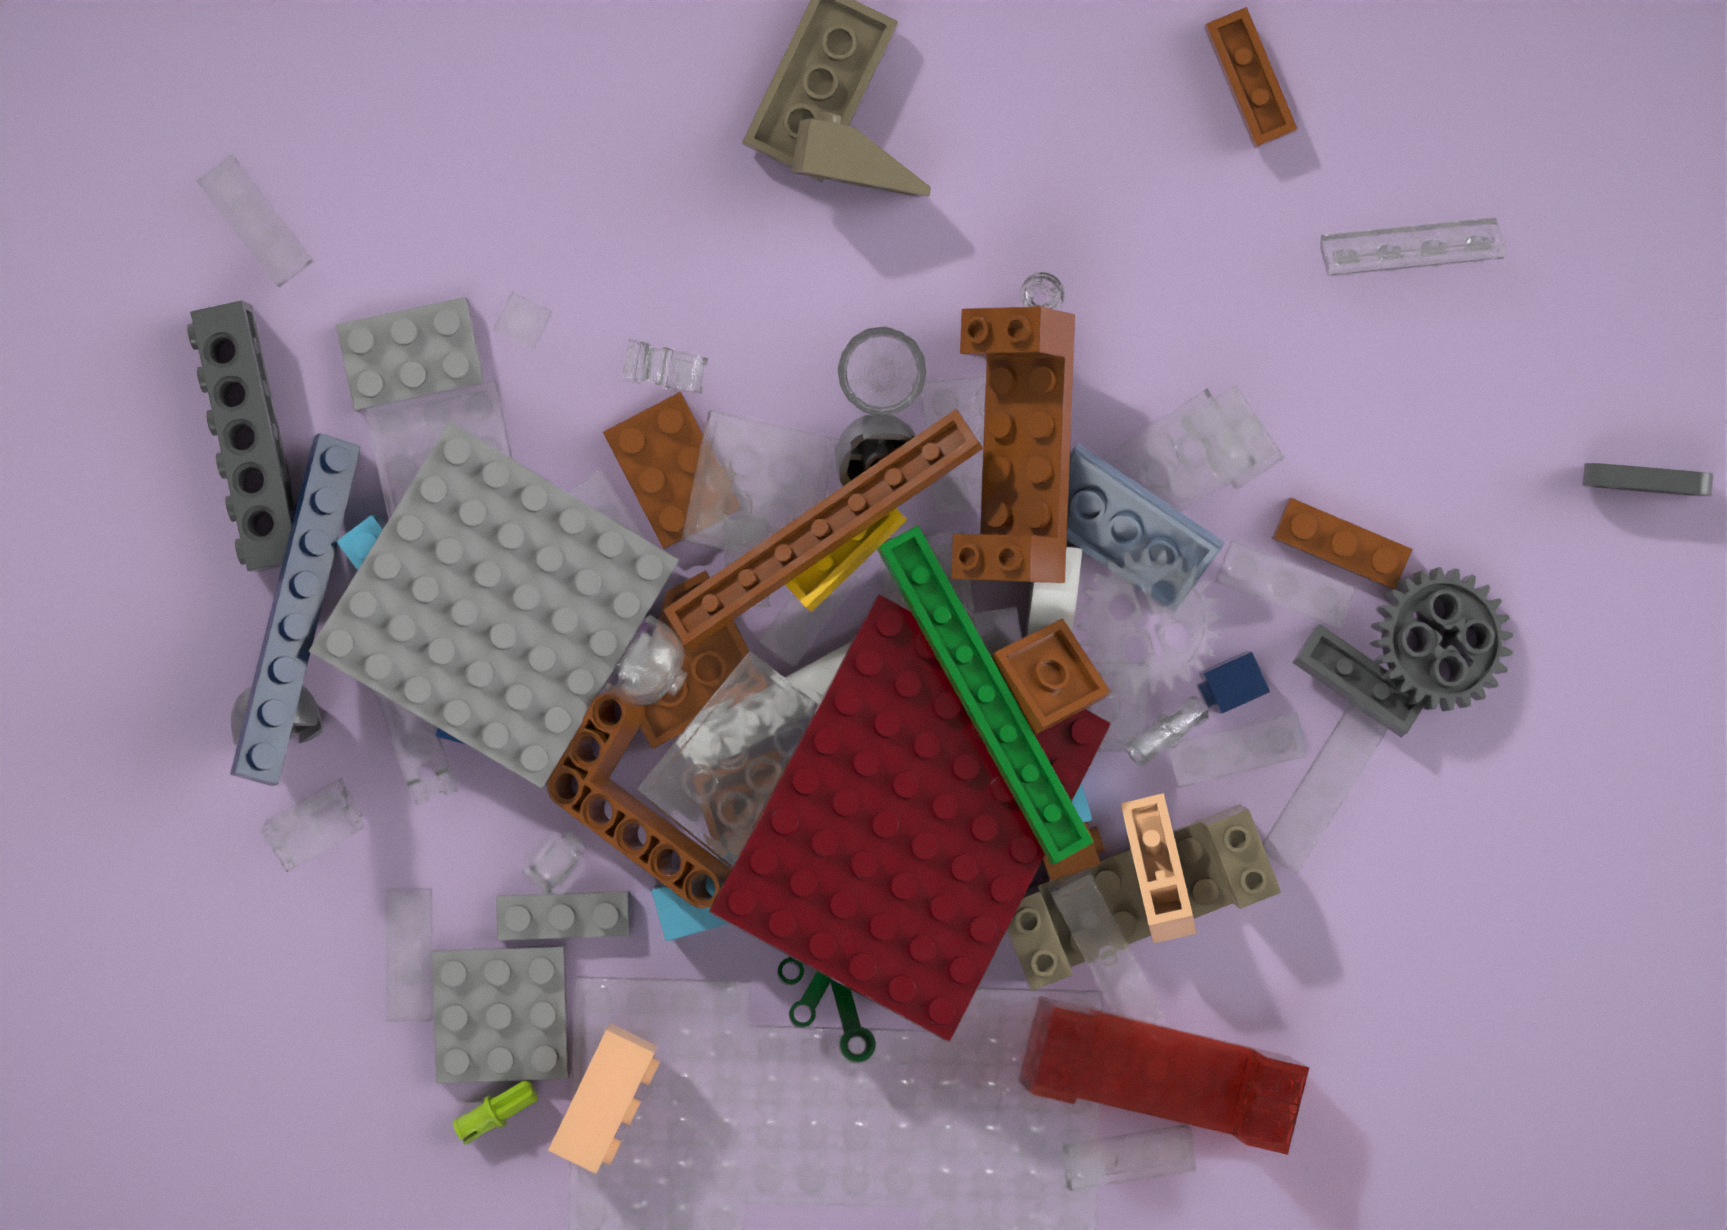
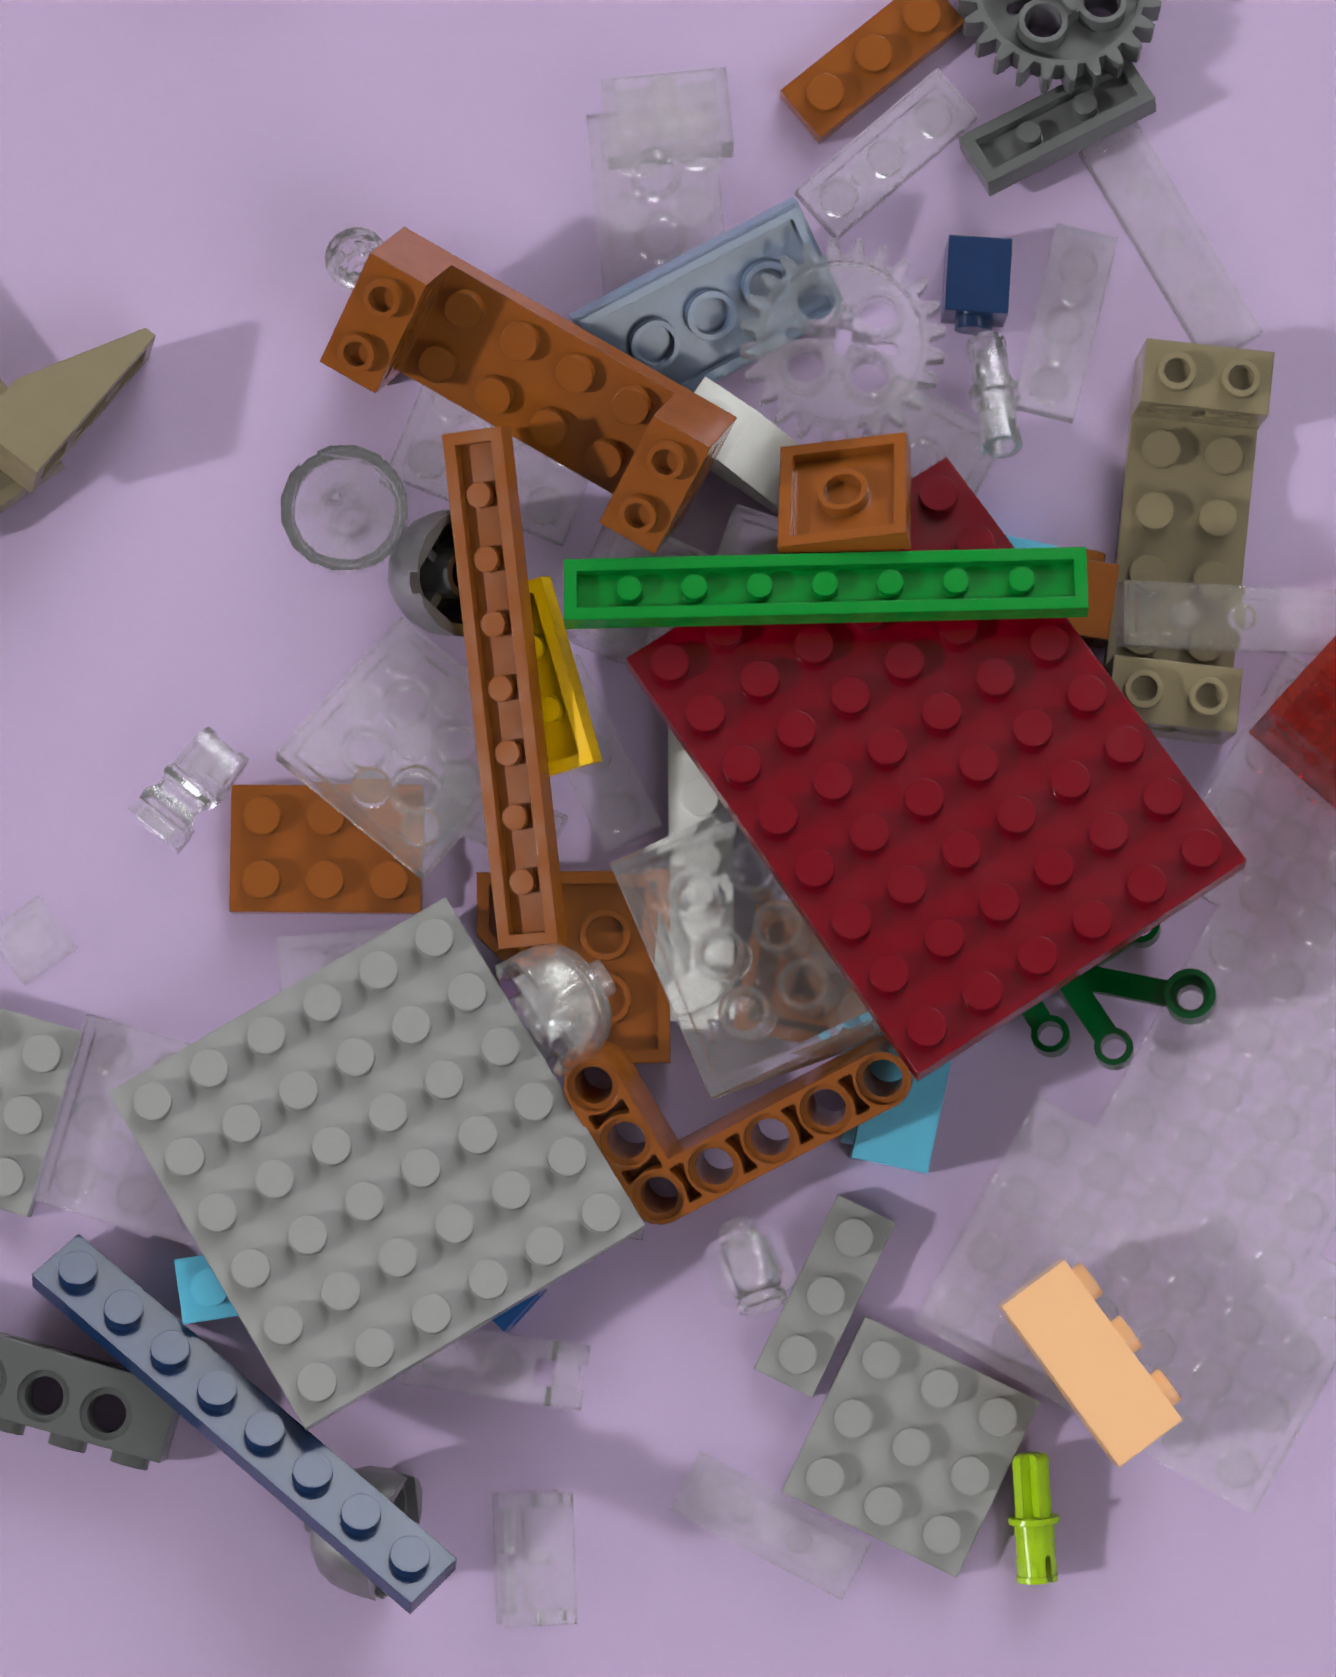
camera: 60 degrees left, 5 degrees down
(1158, 868) = (1165, 494): light nougat slope -> none

